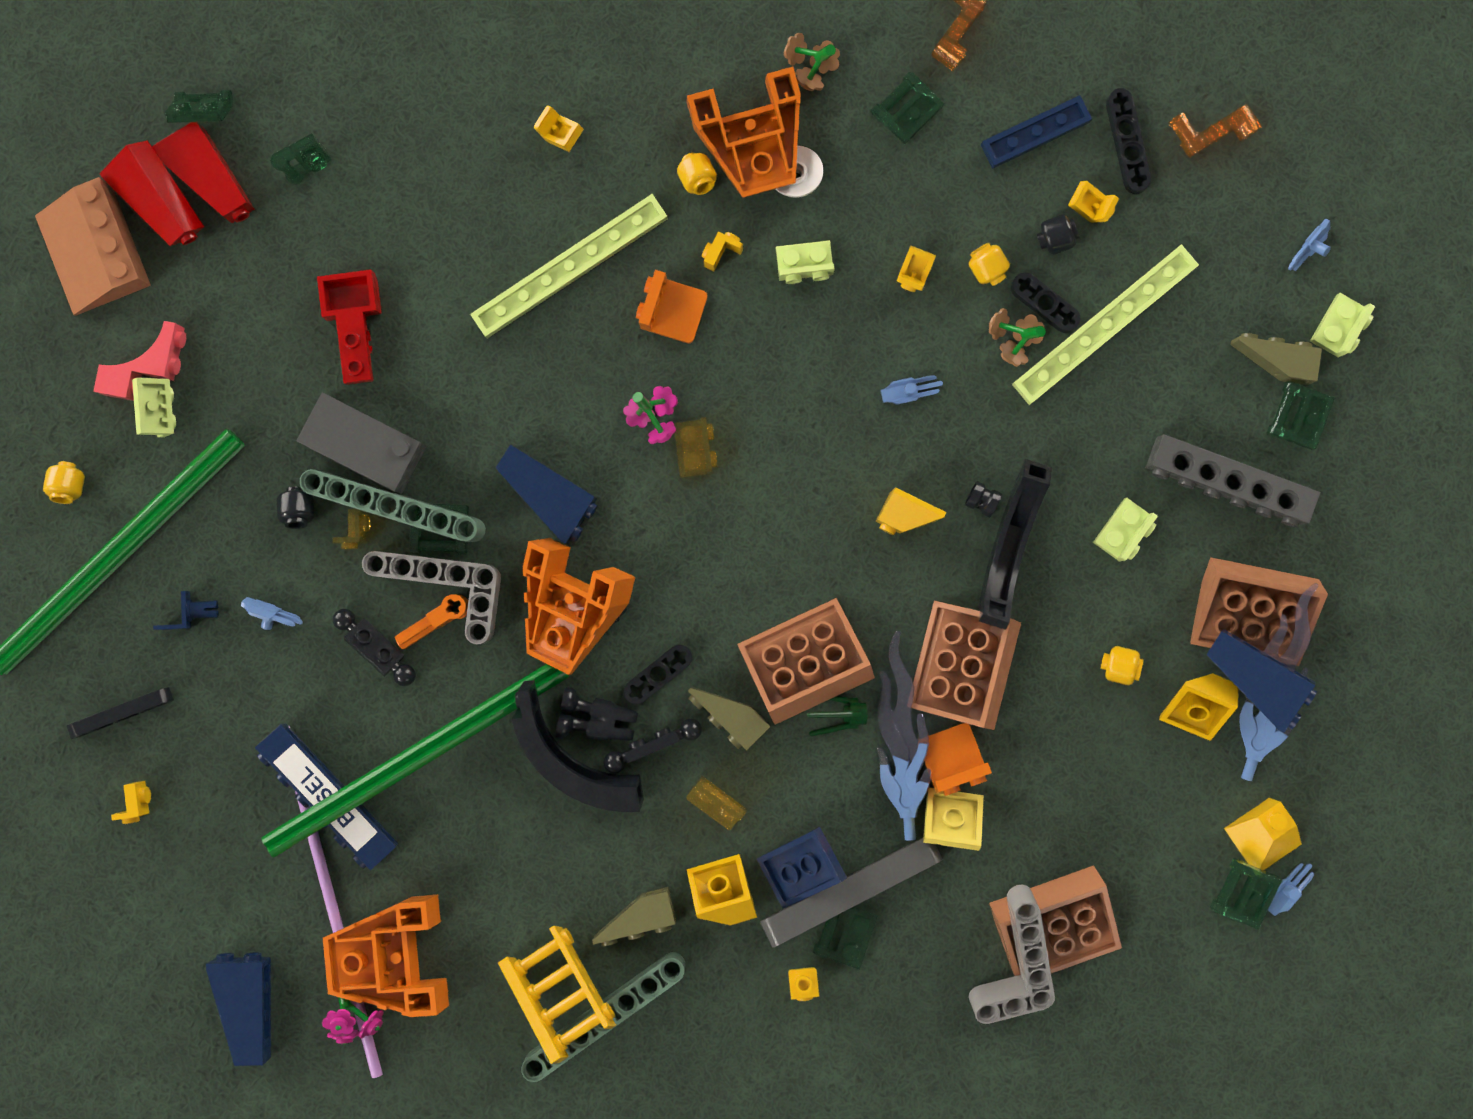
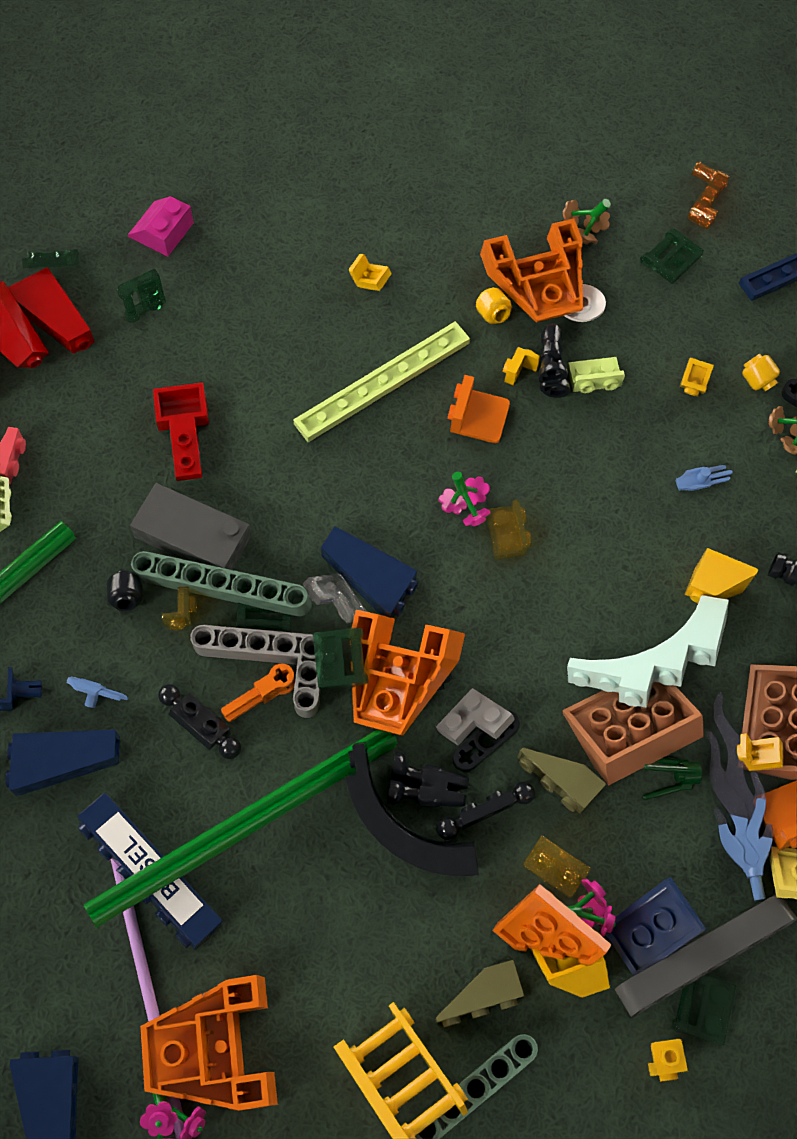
camera: 10 degrees left, 20 degrees down
(229, 682) = (55, 757): none -> dark blue slope
(324, 59) = (163, 225): none -> dark pink slope
(501, 593) = (330, 658): none -> clear green plate
(511, 514) = (334, 590): none -> clear plate
(645, 646) = (474, 711): none -> light grey plate
(691, 861) = (552, 928): none -> orange plate
(748, 846) = (593, 907): none -> dark pink plant
(756, 246) = (552, 370): none -> black piece
(810, 617) = (666, 663): none -> light aqua arch
(926, 700) = (760, 753): none -> yellow bracket

